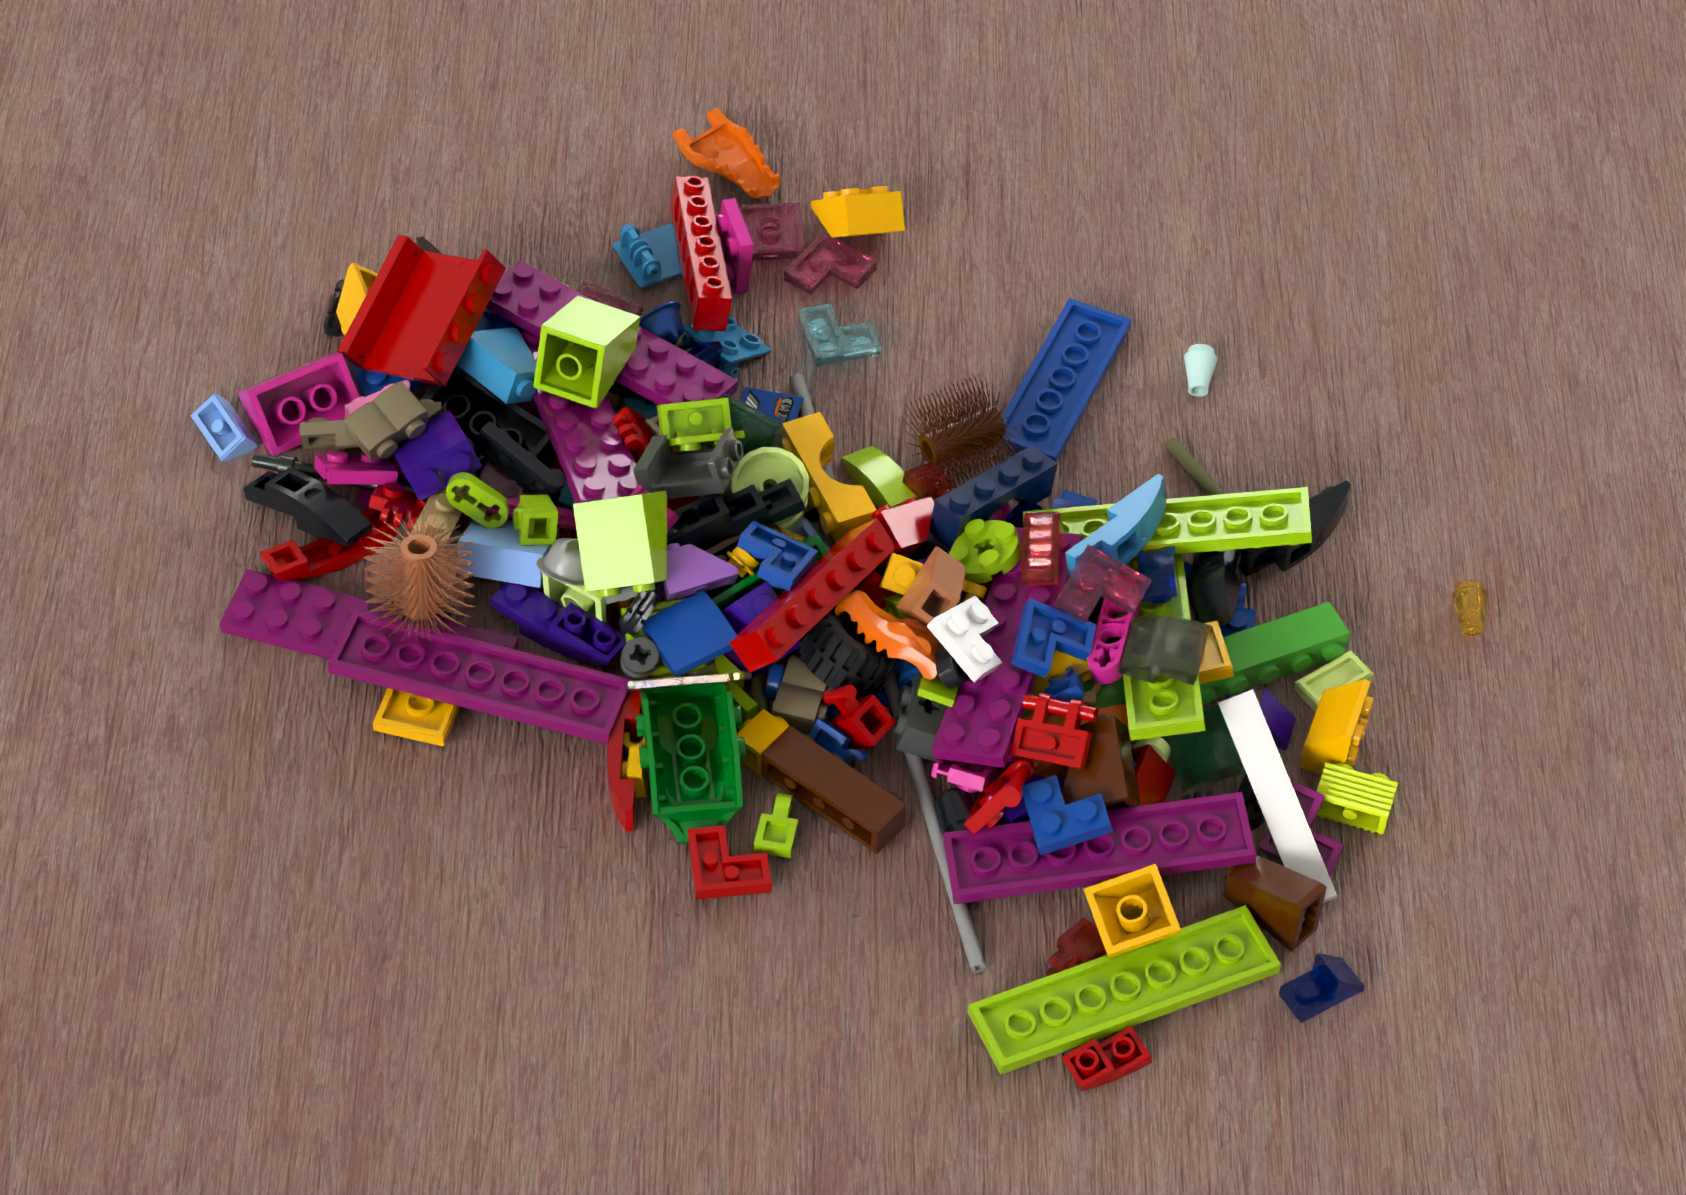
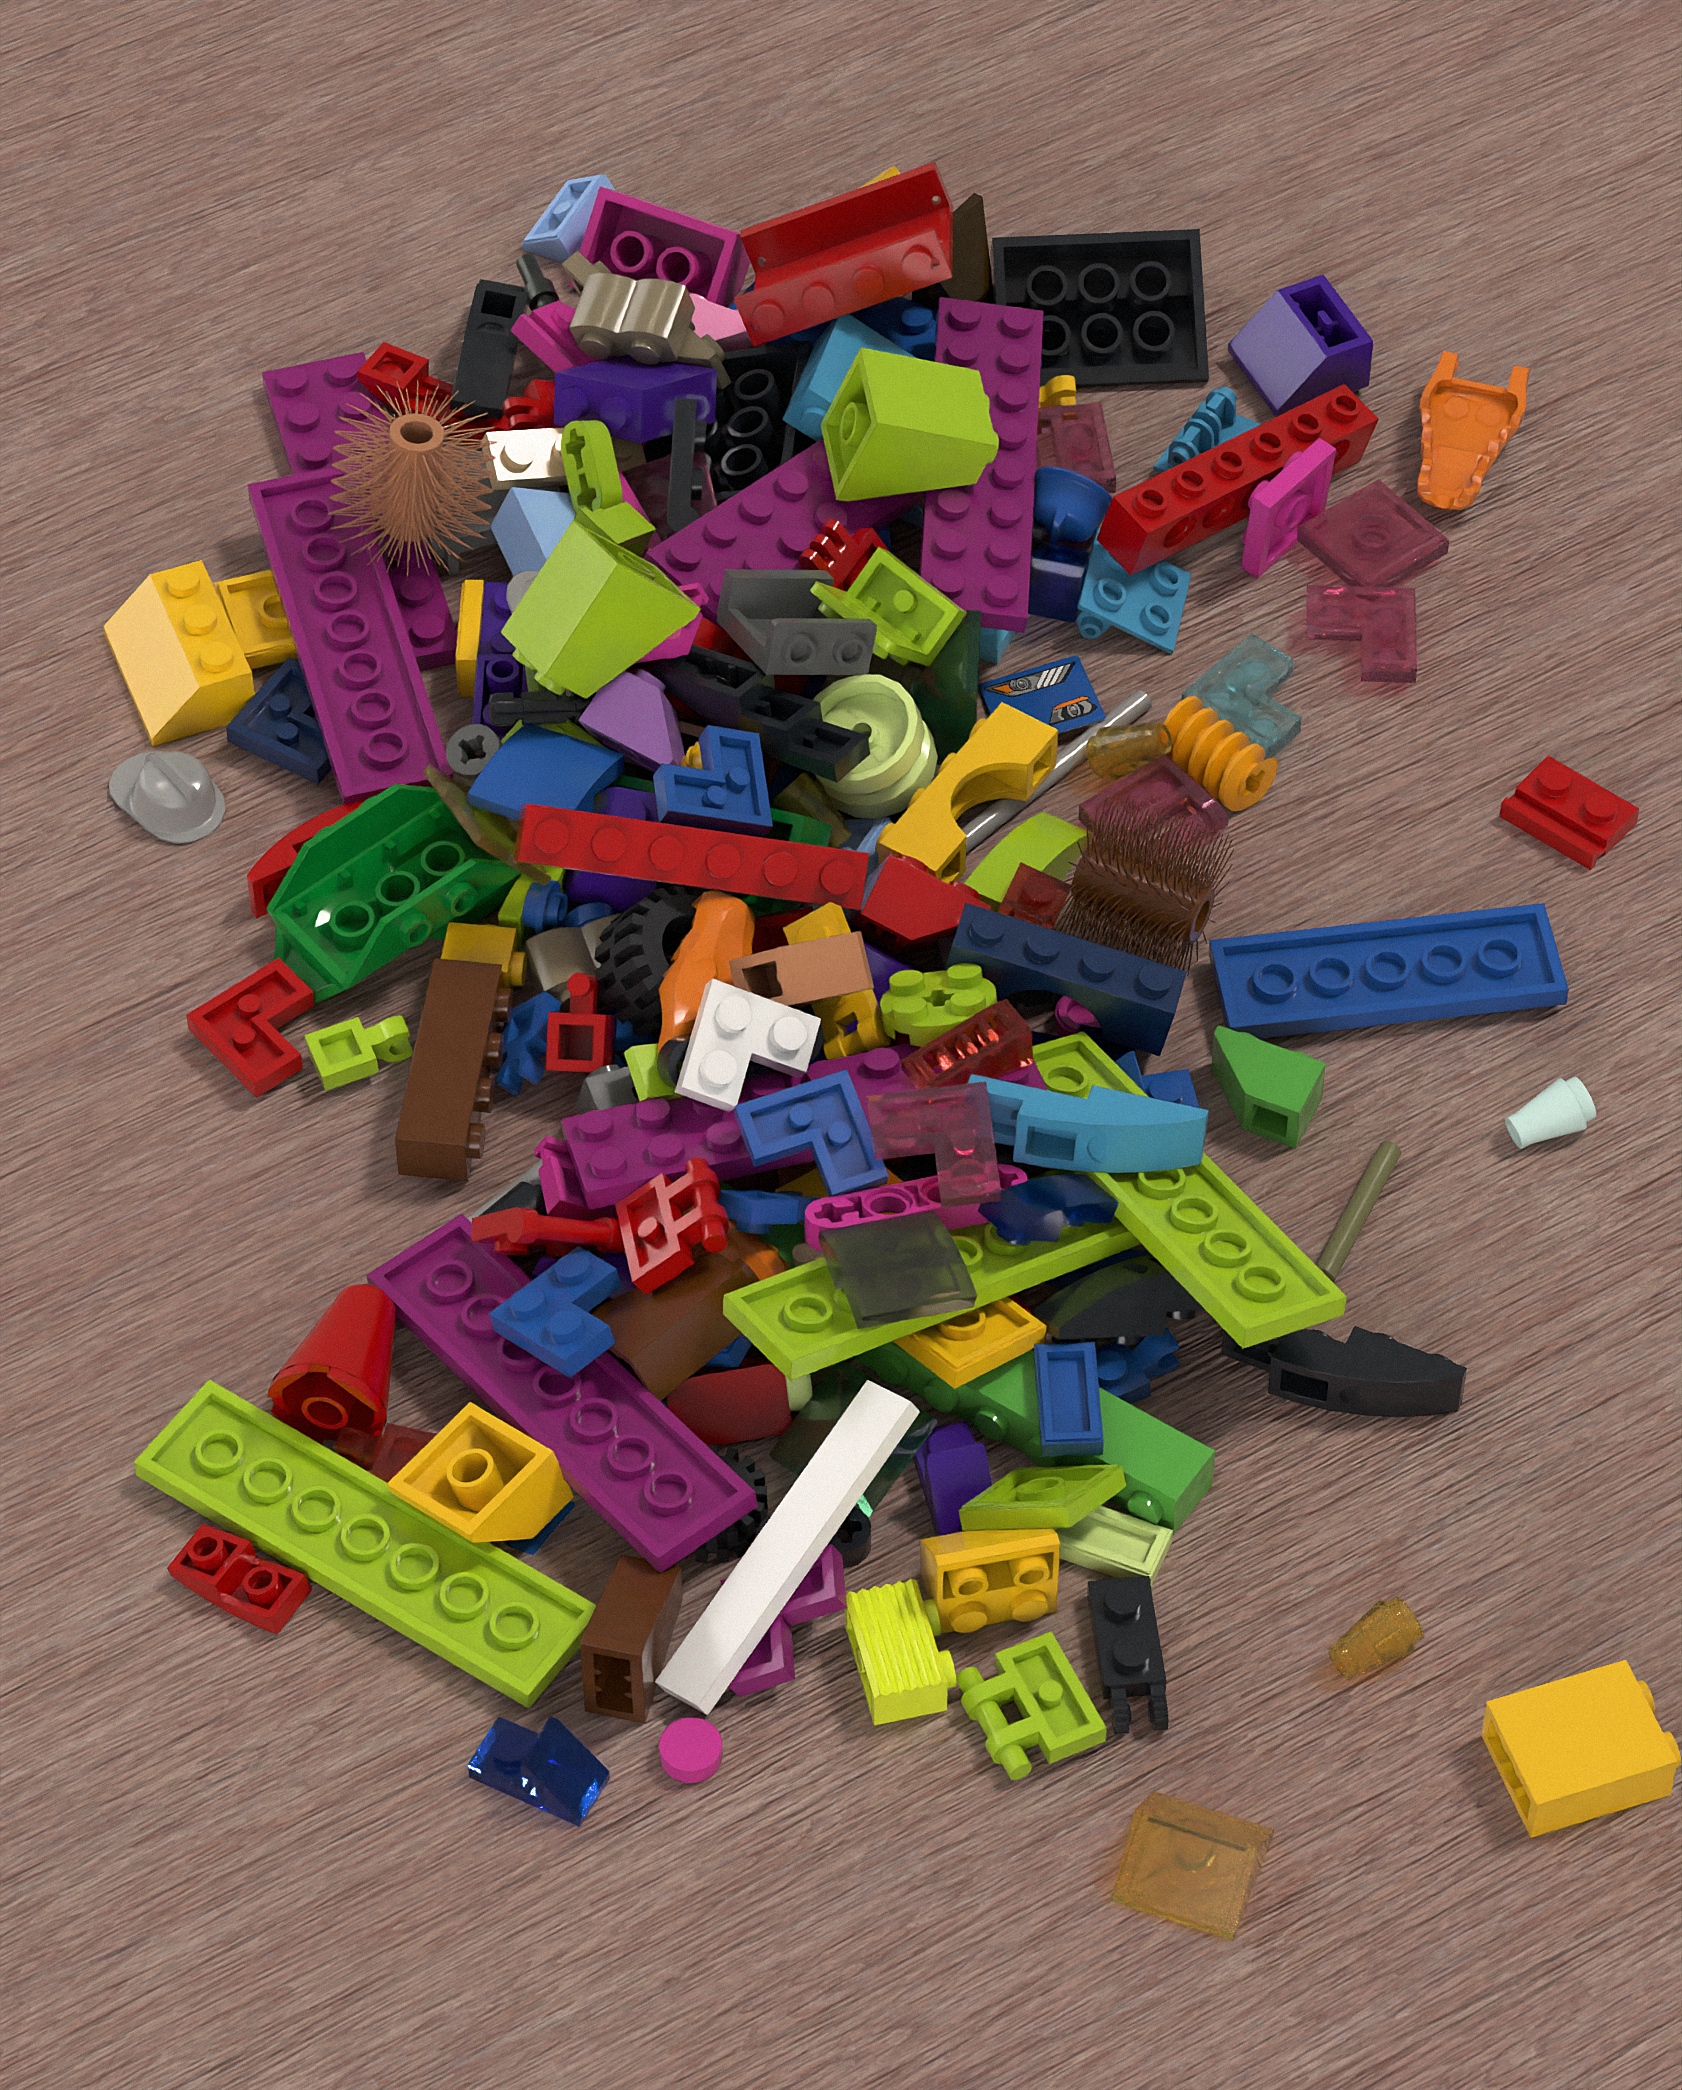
camera: 60 degrees right, 0 degrees up
(415, 765) = (179, 655): none -> yellow slope
(507, 826) = (168, 795): none -> light grey piece
(509, 749) = (282, 726): none -> dark blue plate
(526, 227) = (1111, 304): none -> black slope
(531, 634) = (469, 635): none -> yellow tile
(620, 182) = (1303, 346): none -> dark purple slope
(756, 689) = (544, 906): none -> blue plate
(838, 397) = (1125, 748): none -> clear yellow cone
(860, 211) = (1477, 604): yellow slope -> none
(868, 366) = (1218, 756): none -> light orange piece
(873, 414) = (1164, 787): none -> clear pink plate
(1009, 260) = (1569, 812): none -> red plate
(1011, 936) = (340, 1368): none -> red cone
(1101, 465) = (1267, 1085): none -> bright green slope
(1261, 639) = (1068, 1399): none -> blue tile
(1314, 683) = (1042, 1497): none -> lime tile
(1352, 916) = (690, 1750): none -> dark pink tile
(1415, 709) = (1128, 1649): none -> black hinge
(1421, 752) = (1048, 1696): none -> lime plate
(1554, 747) = (1190, 1864): none -> clear yellow slope
(1586, 566) = (1580, 1748): none -> yellow brick

